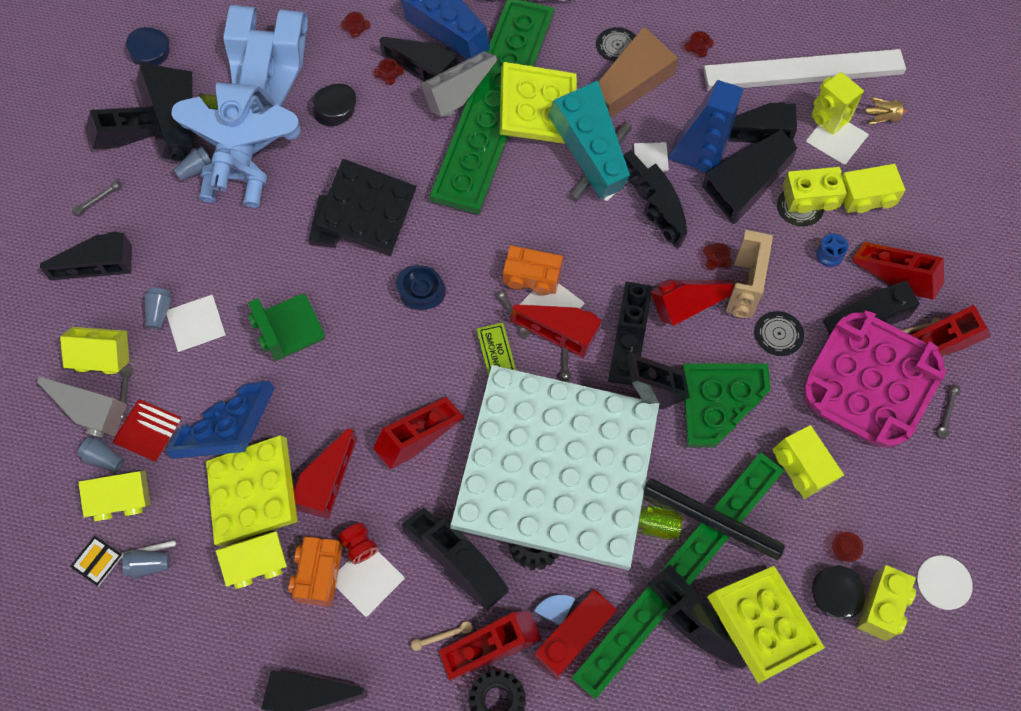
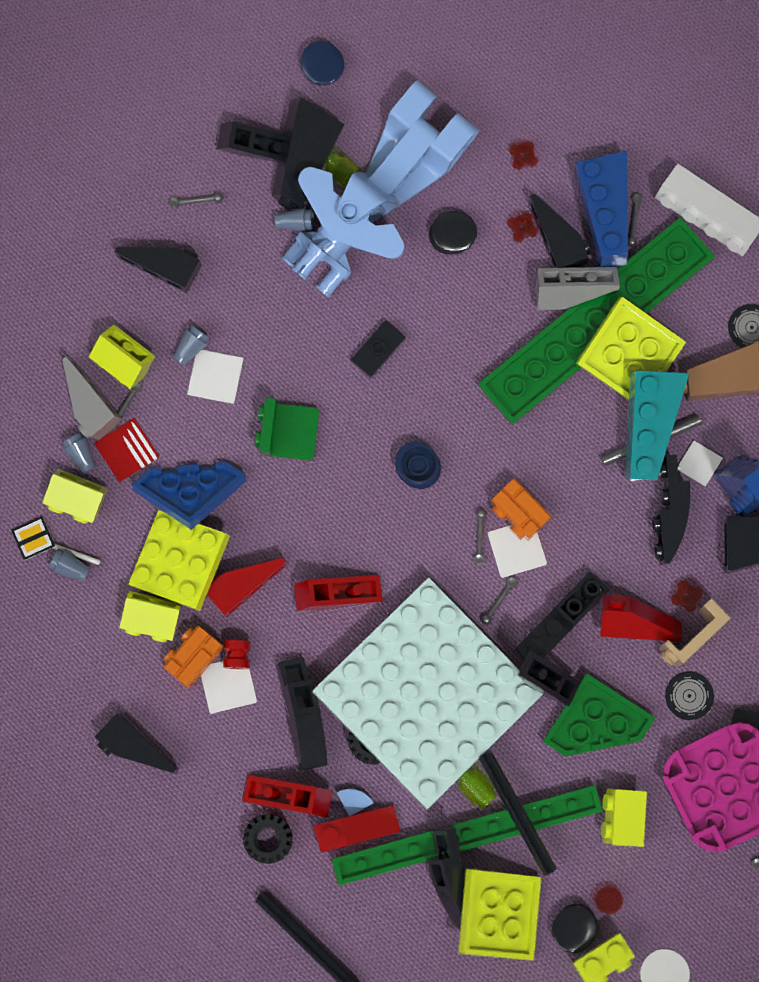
camera: 35 degrees right, 15 degrees up
(366, 207) = (417, 360): black plate -> none
(466, 628) = (235, 759): tan hinge -> none
(495, 347) = (445, 561): lime tile -> none
(563, 326) = (511, 578): red slope -> none

